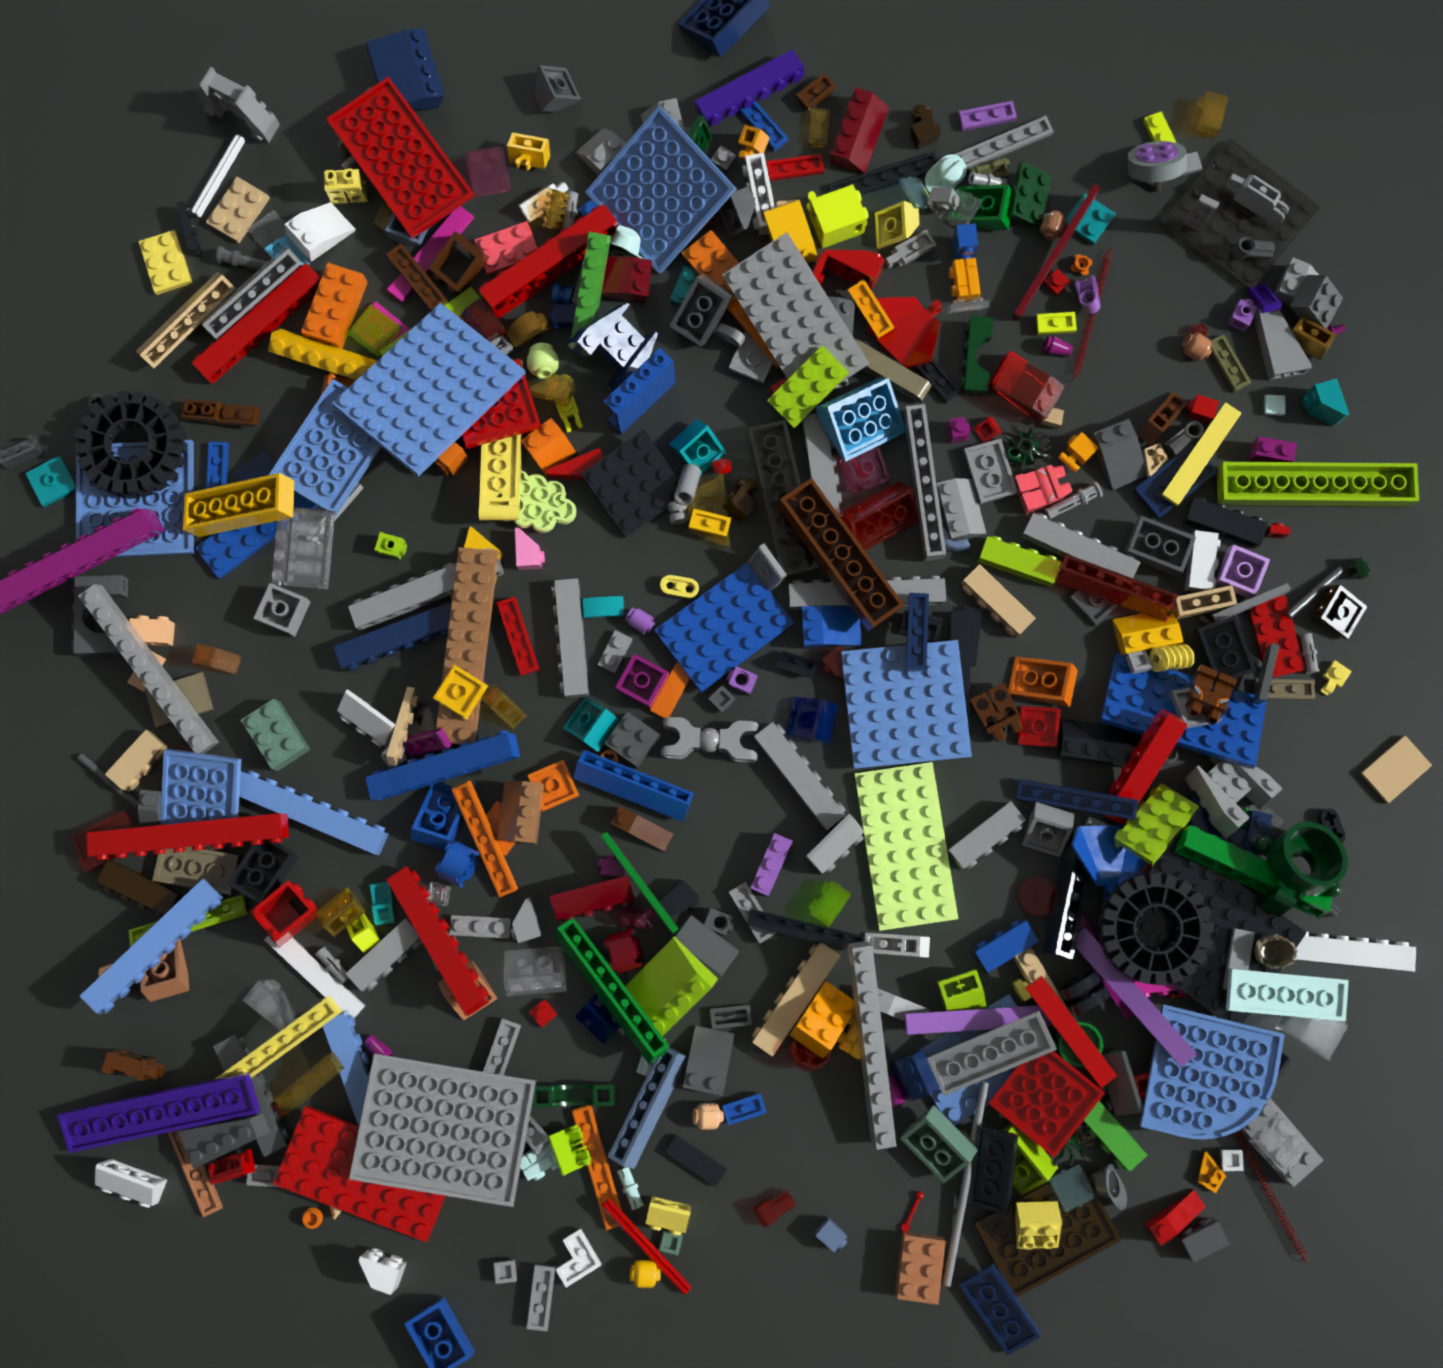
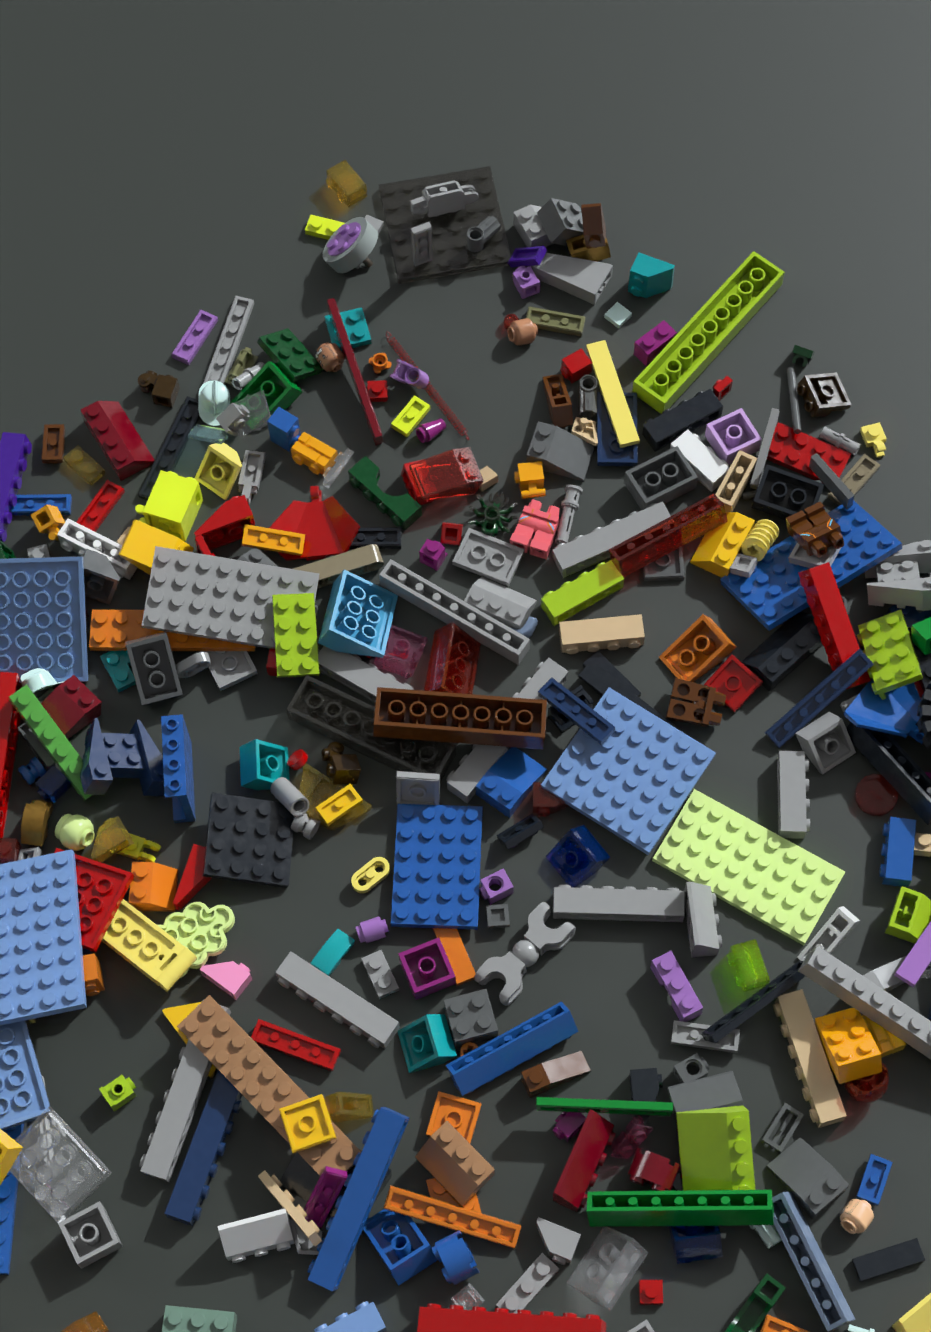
camera: 50 degrees left, 15 degrees down
(1329, 326) = (593, 225): none -> reddish brown slope

